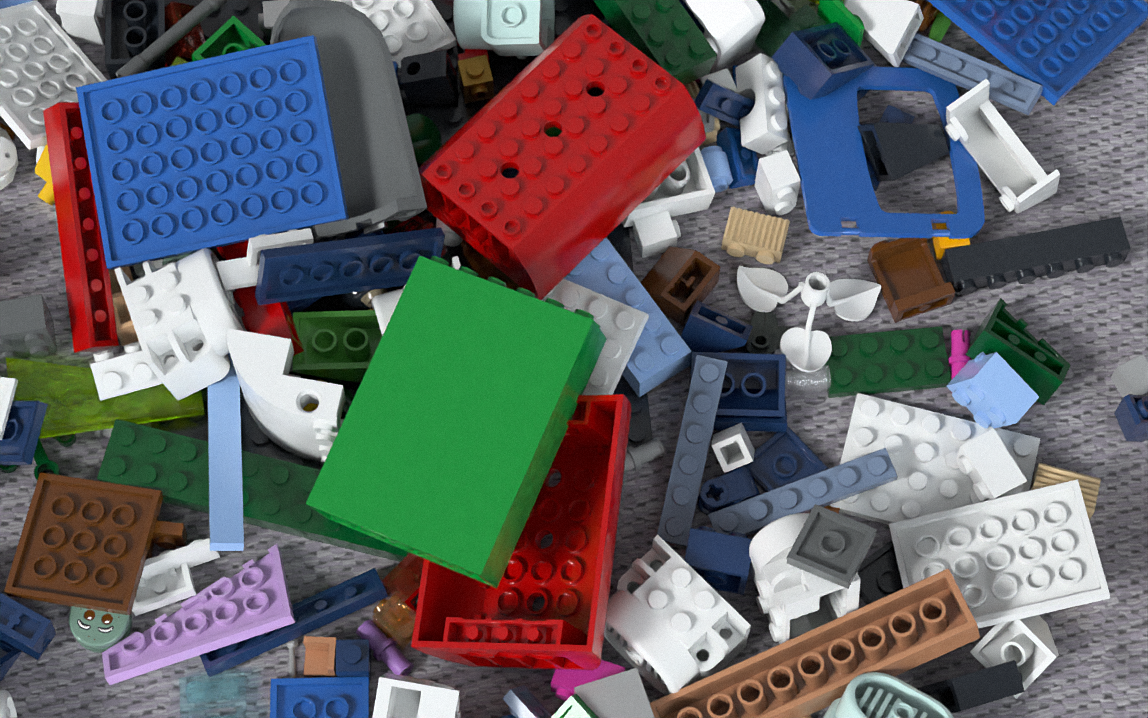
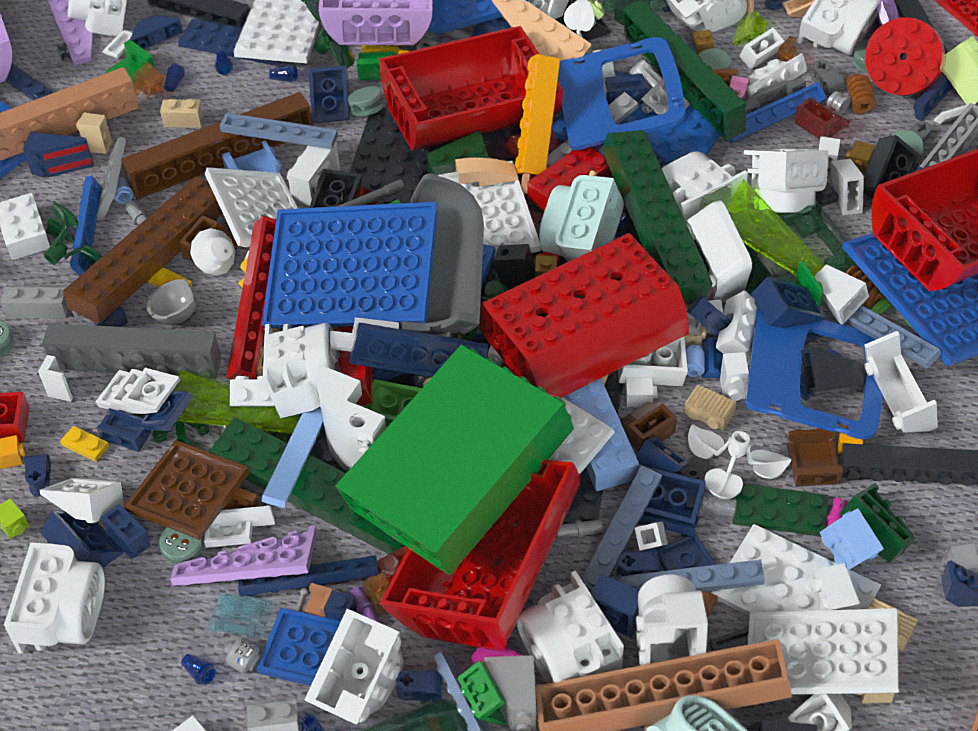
camera: 20 degrees right, 15 degrees down
(831, 546) = (692, 595): dark grey plate -> none

